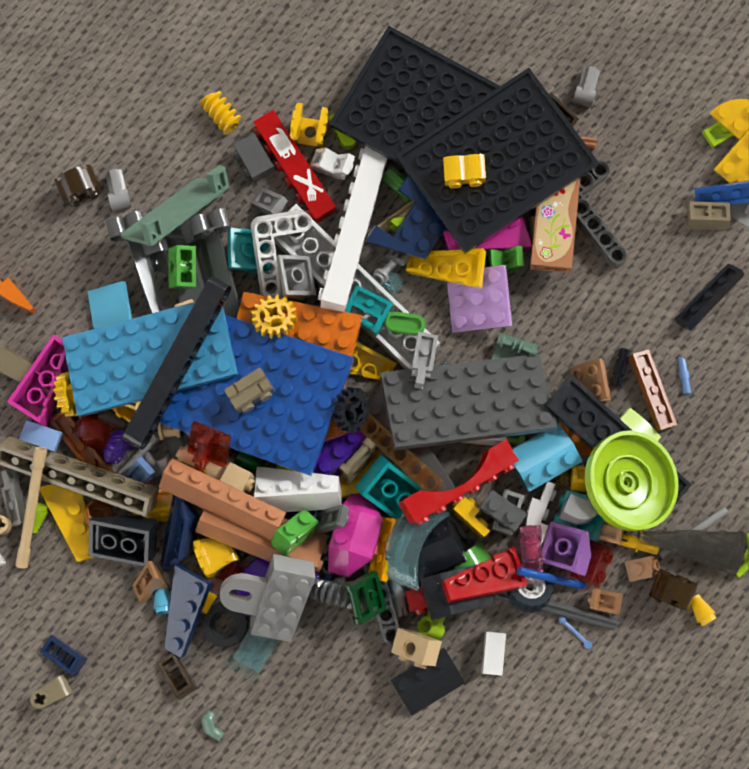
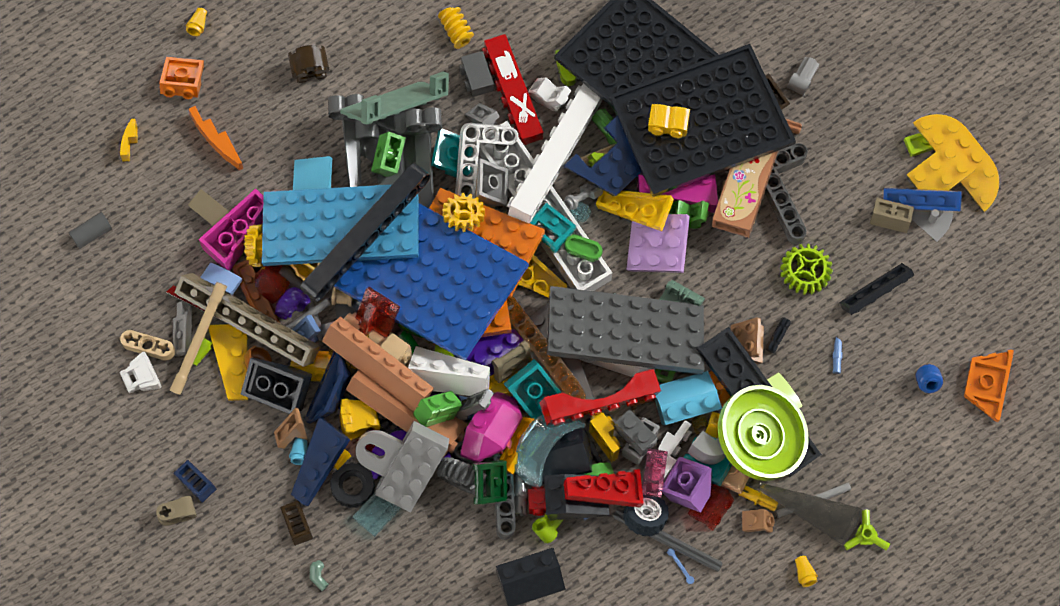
camera: 10 degrees right, 10 degrees down
(118, 193) = (343, 81): light grey piece -> none
(249, 391) = (426, 271): dark tan brick -> none
(300, 124) = (526, 54): yellow piece -> none
(351, 409) = (515, 309): black gear -> none
(416, 648) = (526, 539): tan brick -> none
(423, 357) = (593, 280): light grey hinge -> none
(493, 653) = (598, 567): white panel -> none
(550, 578) = (668, 507): blue bar -> none
(605, 601) = (715, 542): medium nougat bracket -> none
(628, 285) = (794, 278): none -> lime gear
(652, 390) = (804, 361): plate -> none
(673, 589) = (781, 544): dark brown brick -> none

